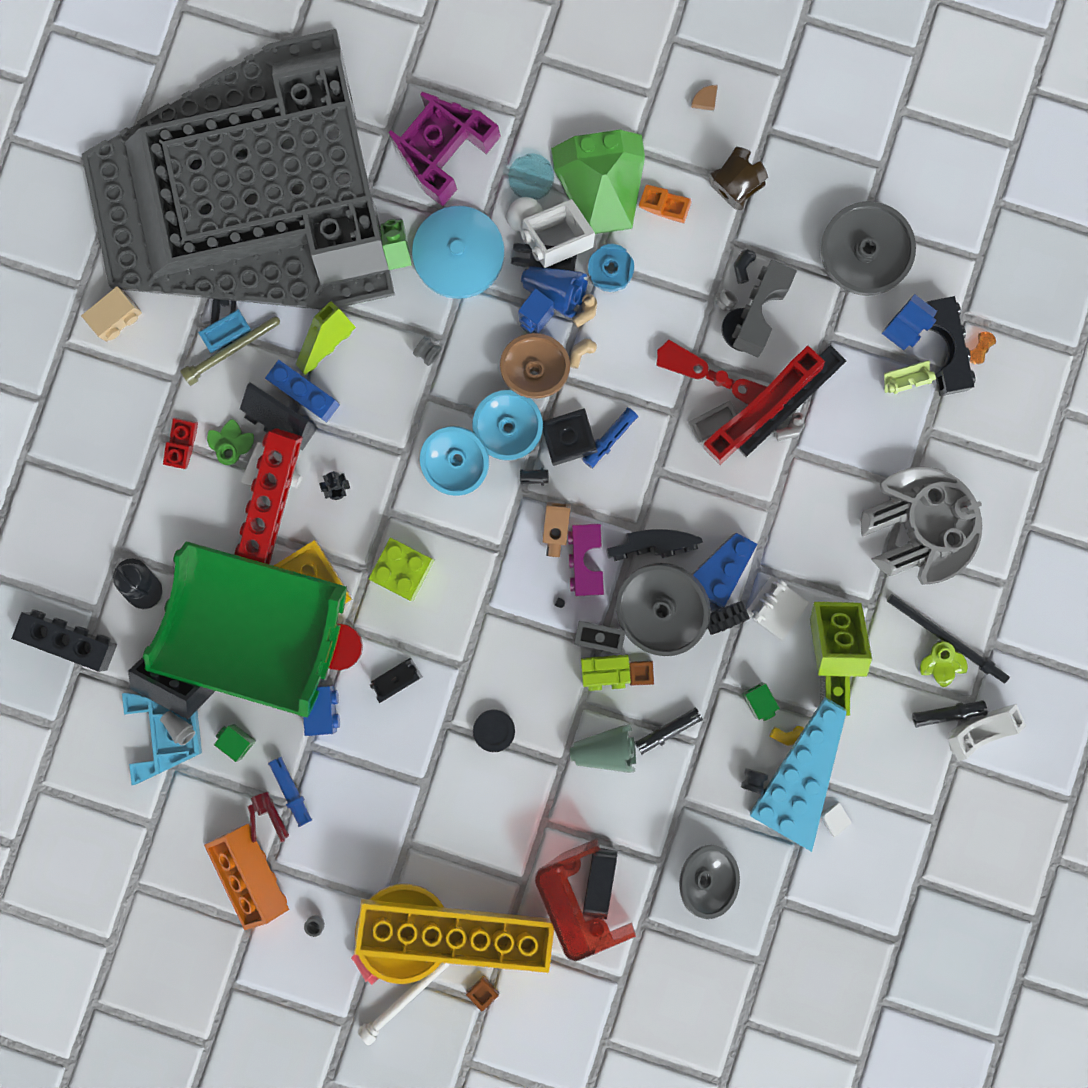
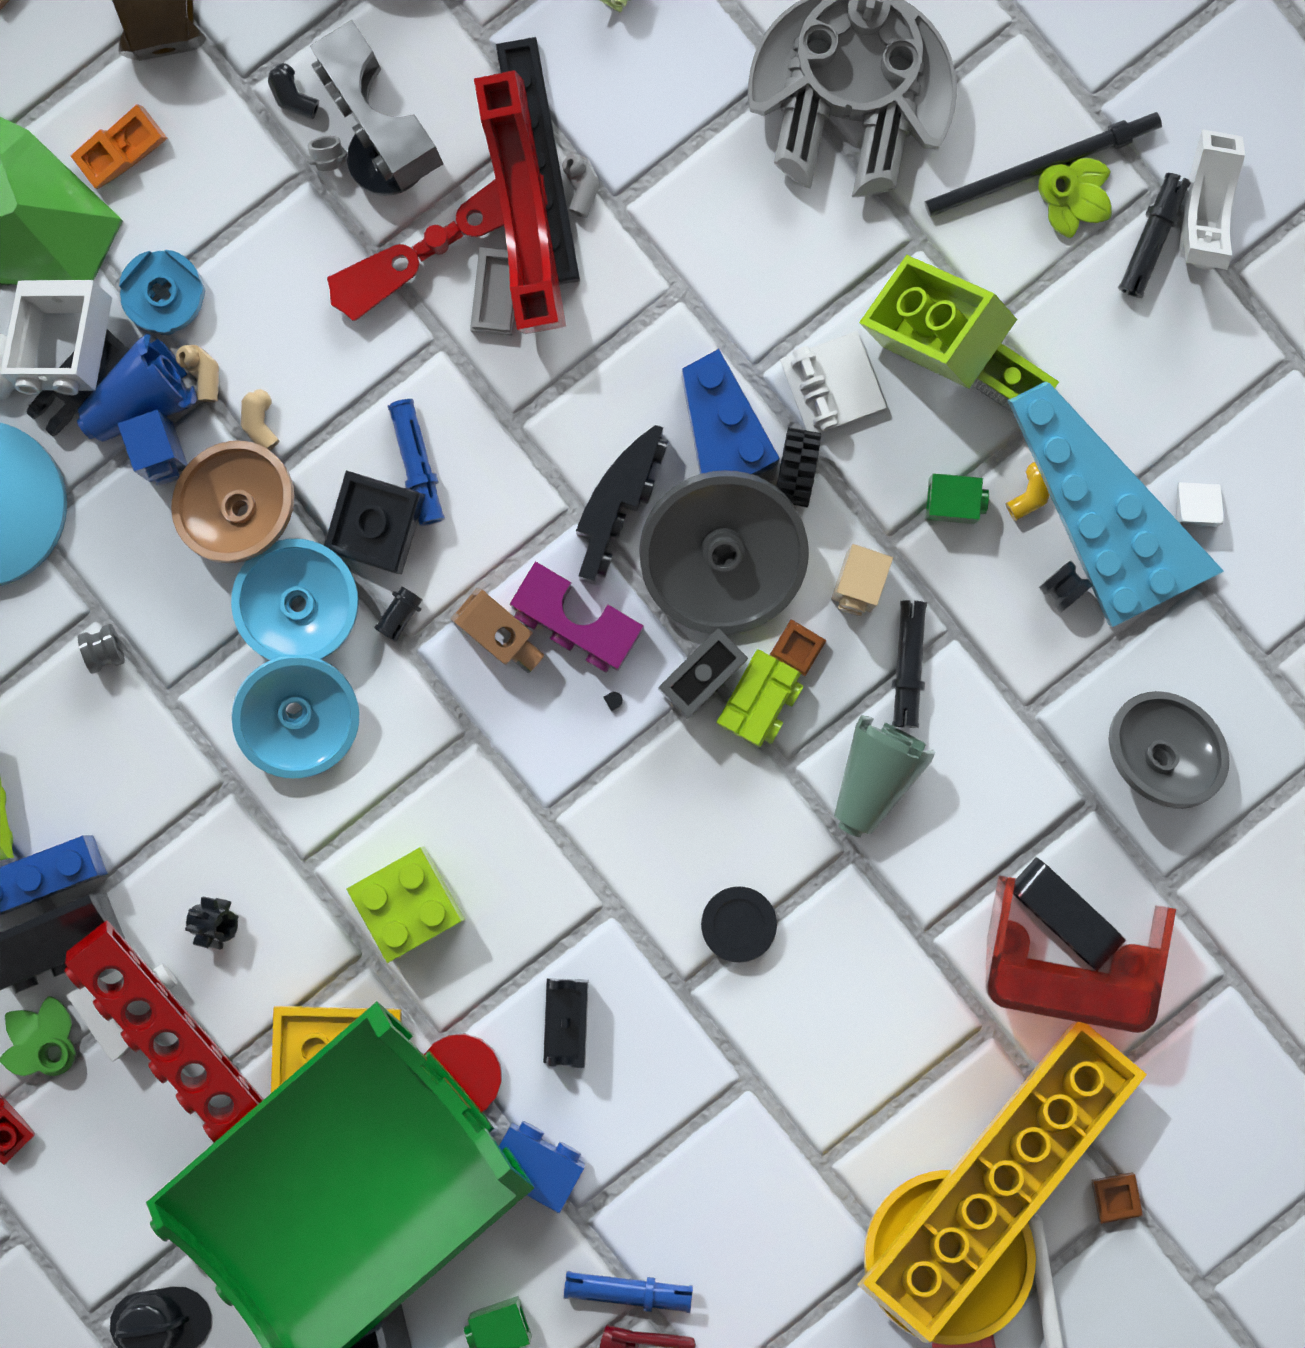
camera: 65 degrees left, 0 degrees up
(693, 682) = (861, 580): none -> tan brick

